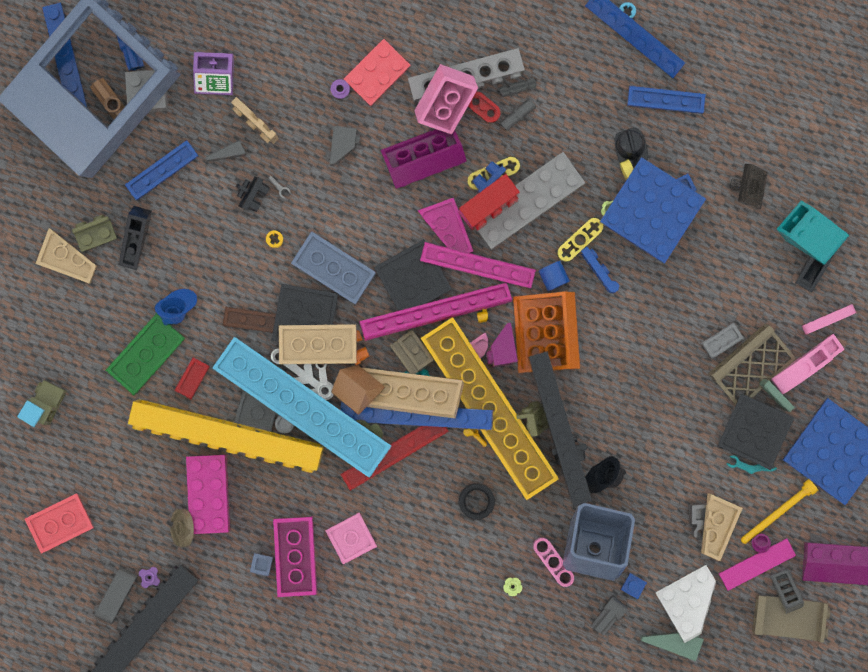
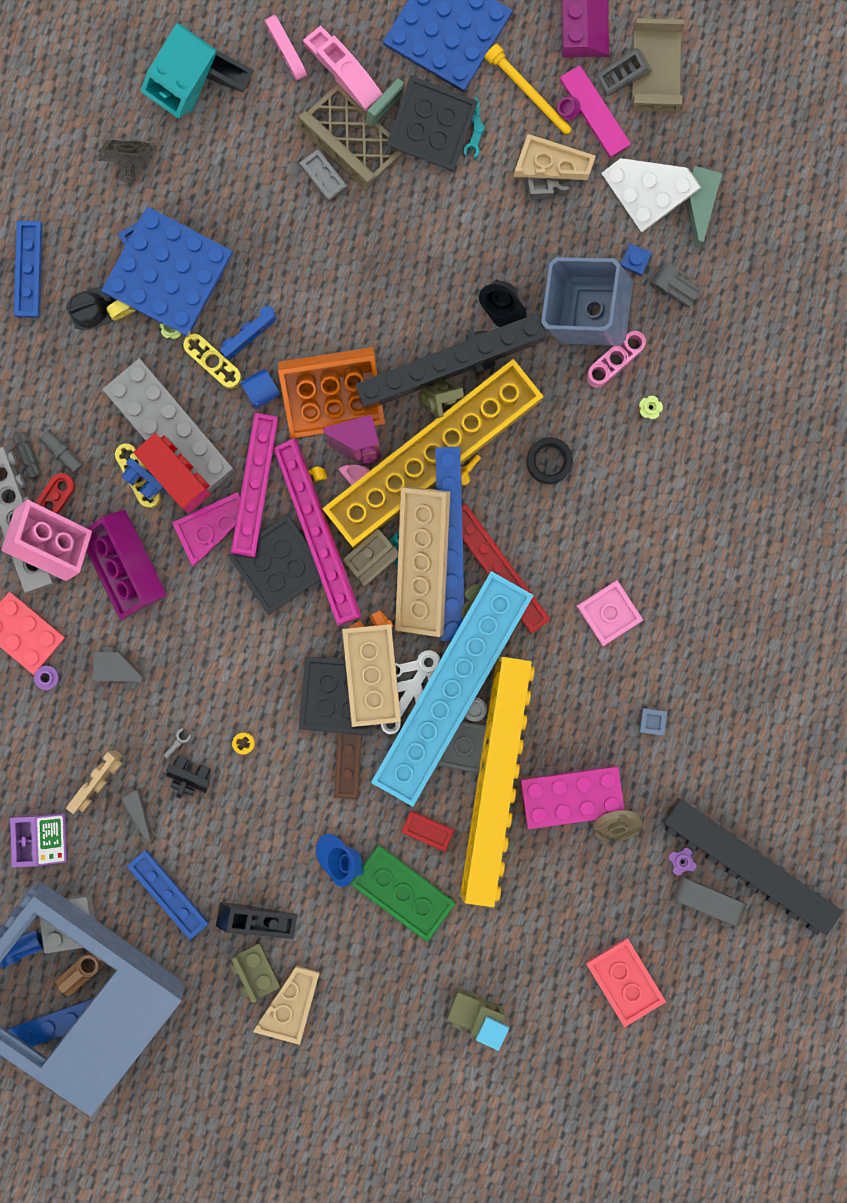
camera: 90 degrees left, 0 degrees up
(295, 556) = (640, 680): dark pink brick -> none
(333, 268) = (273, 665): sand blue plate -> none
(356, 388) = (422, 621): medium nougat slope -> none

